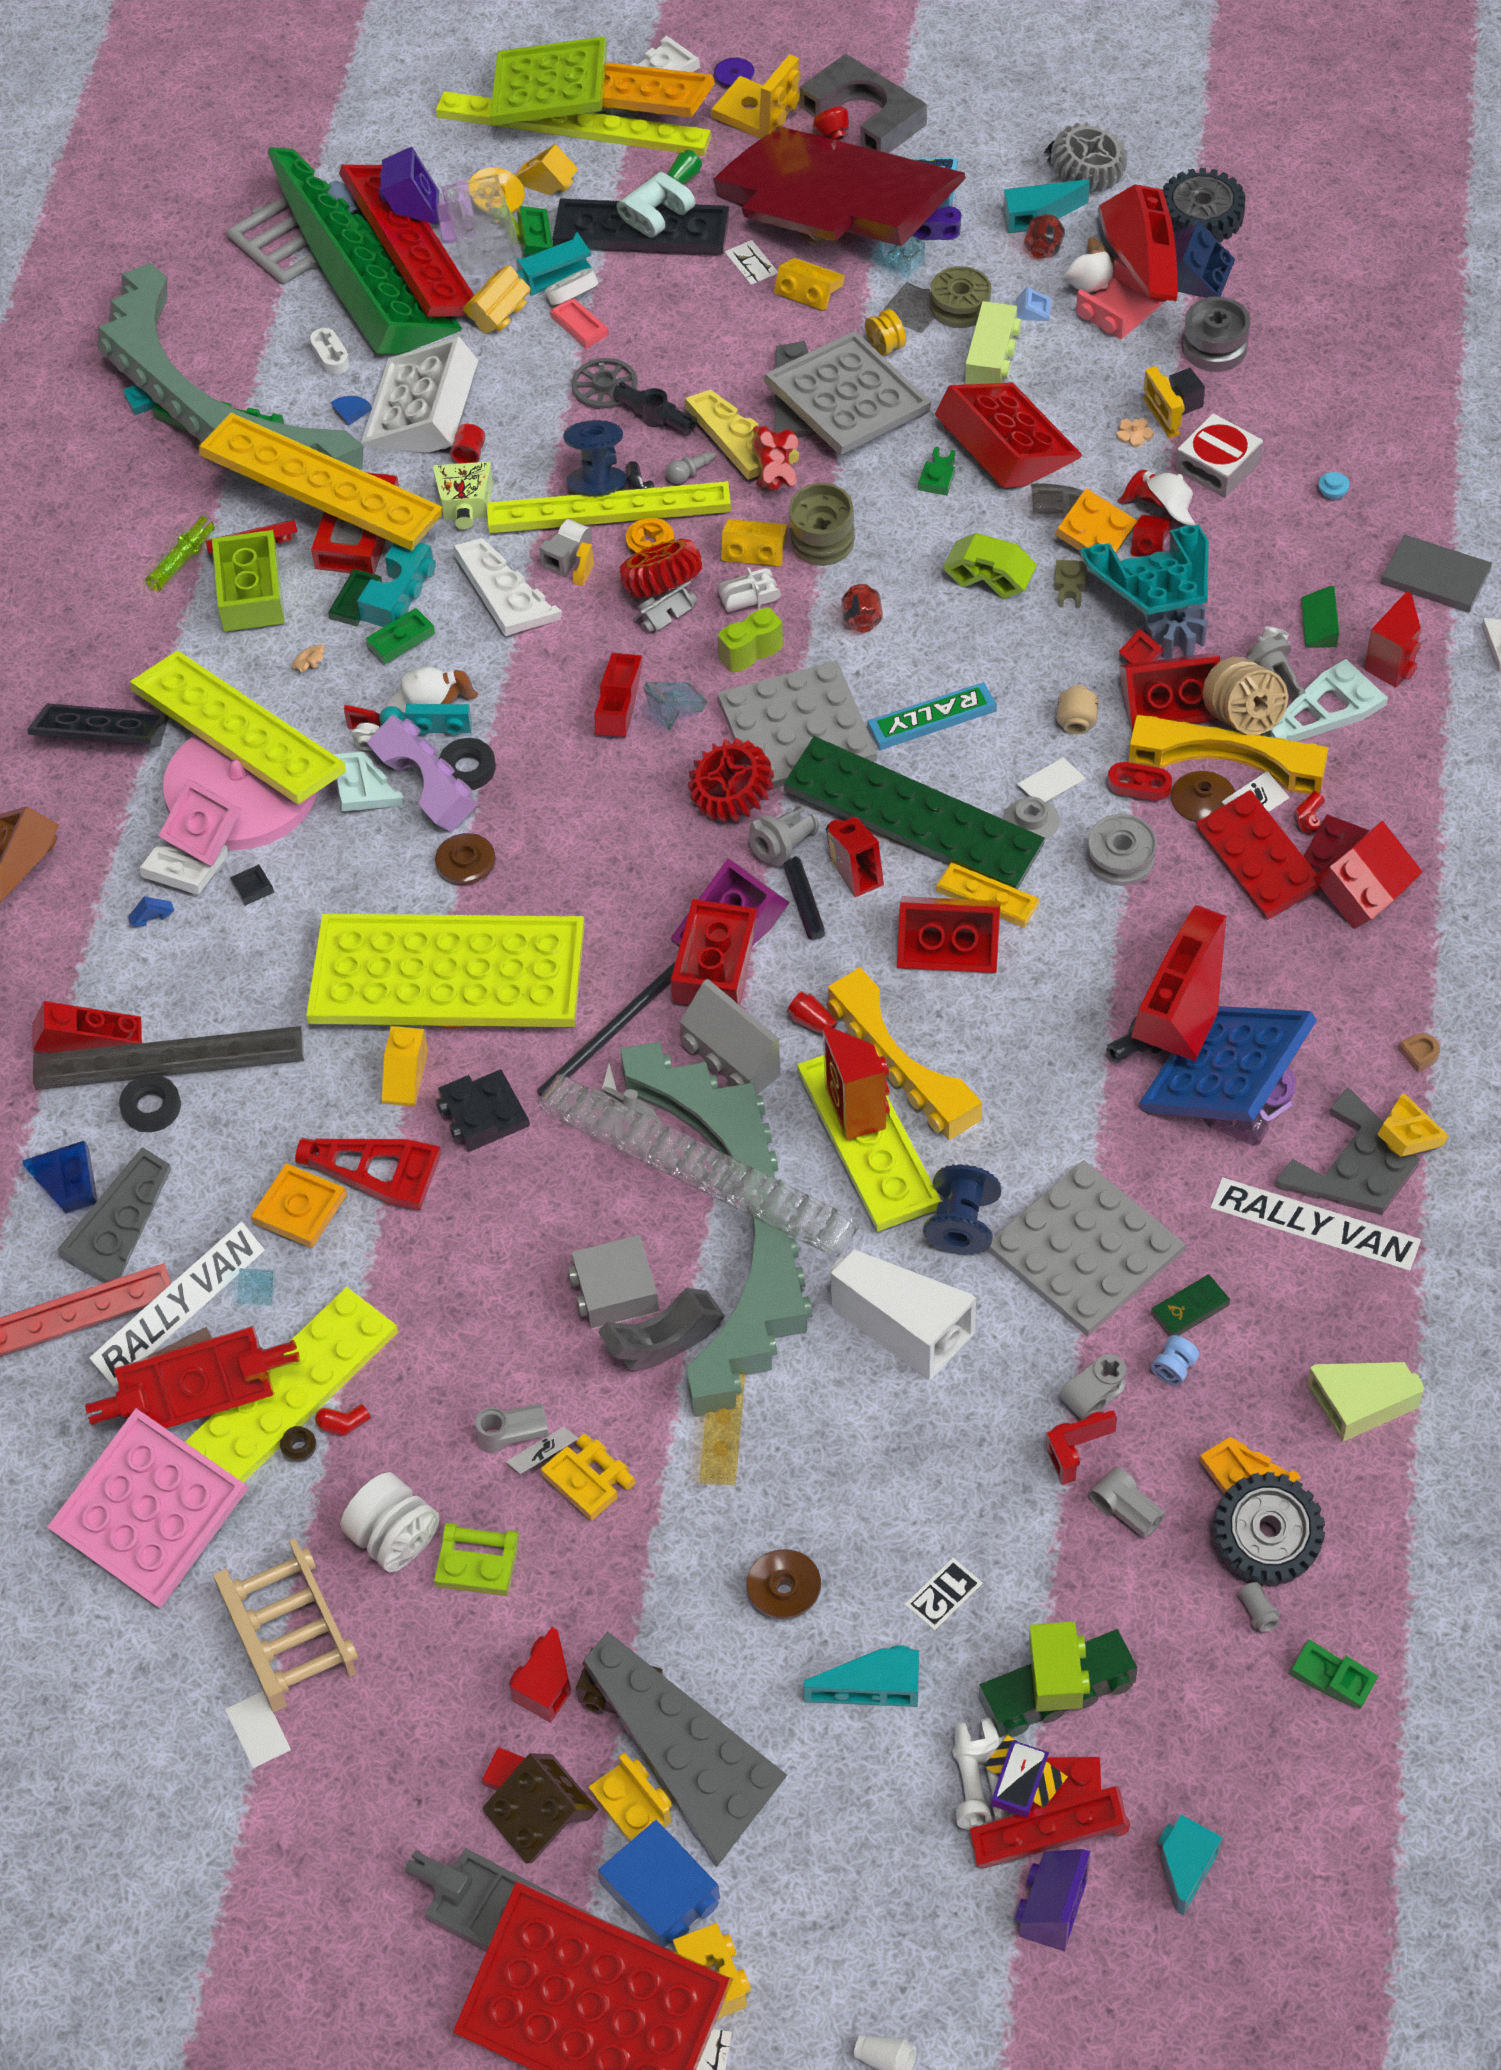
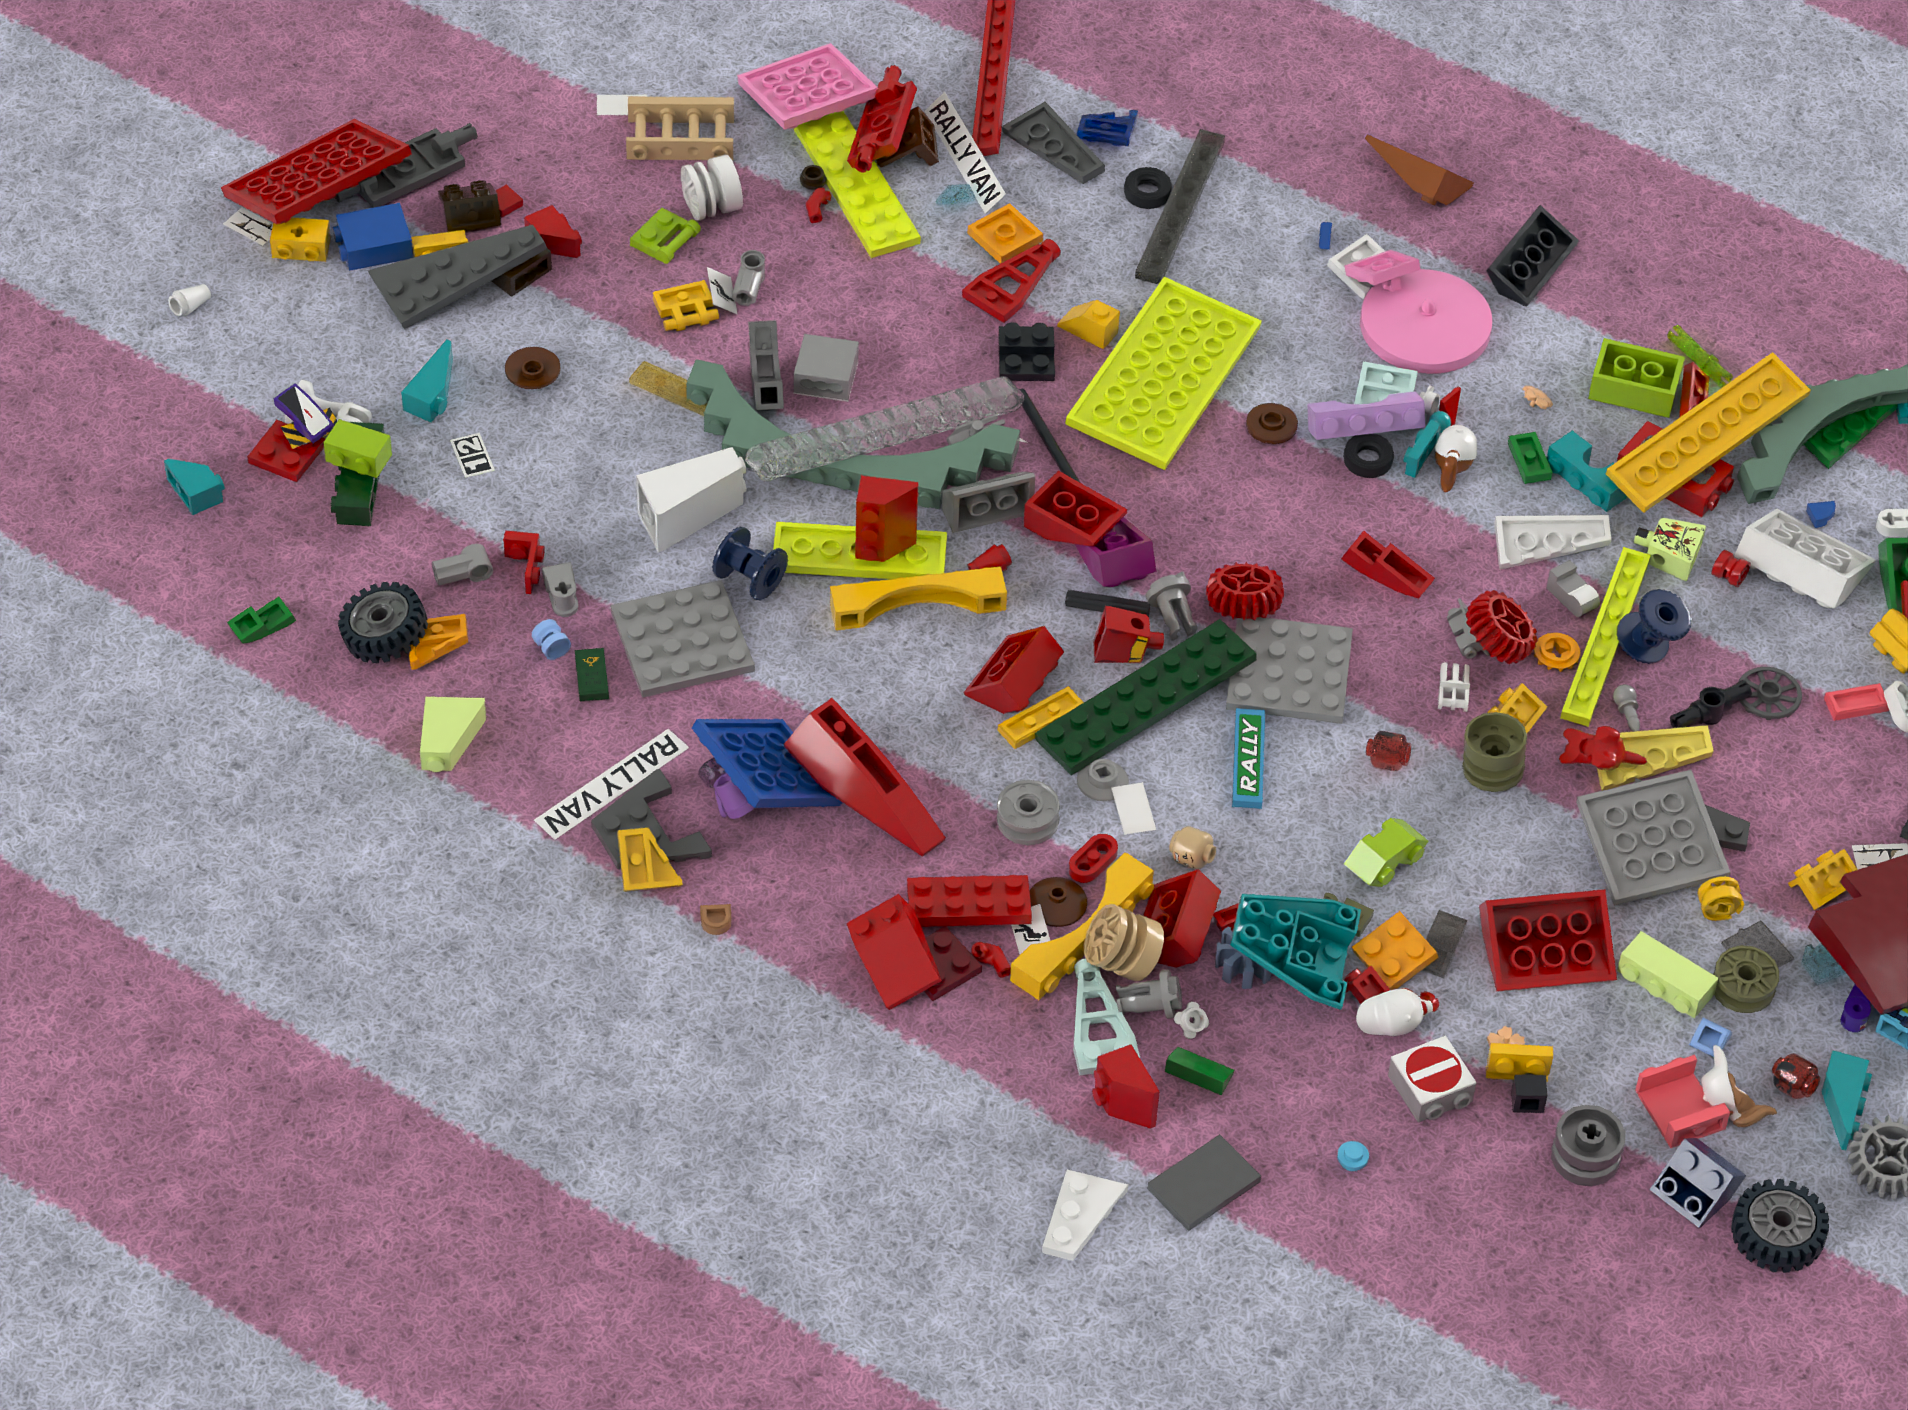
camera: 110 degrees right, 5 degrees down
(73, 1028) = (1233, 168): red slope -> none
(238, 727) = (1472, 318): neon yellow plate -> none
(252, 885) = (1321, 300): black tile -> none
(345, 606) = (1602, 452): dark green tile -> none
(586, 564) = (1547, 596): yellow tile -> none
(634, 476) = (1628, 664): black arm -> none
(671, 698) = (1355, 589): clear light blue slope -> none
(750, 640) = (1394, 664): lime brick -> none
(938, 474) = (1529, 875): green plate -> none
(1050, 1827) = (254, 430): red piece -> none
(1054, 1897) = (216, 407): dark purple slope -> none
(1143, 237) = (1730, 1126): red wedge -> none
(1263, 1614) = (332, 602): light grey pin -> none

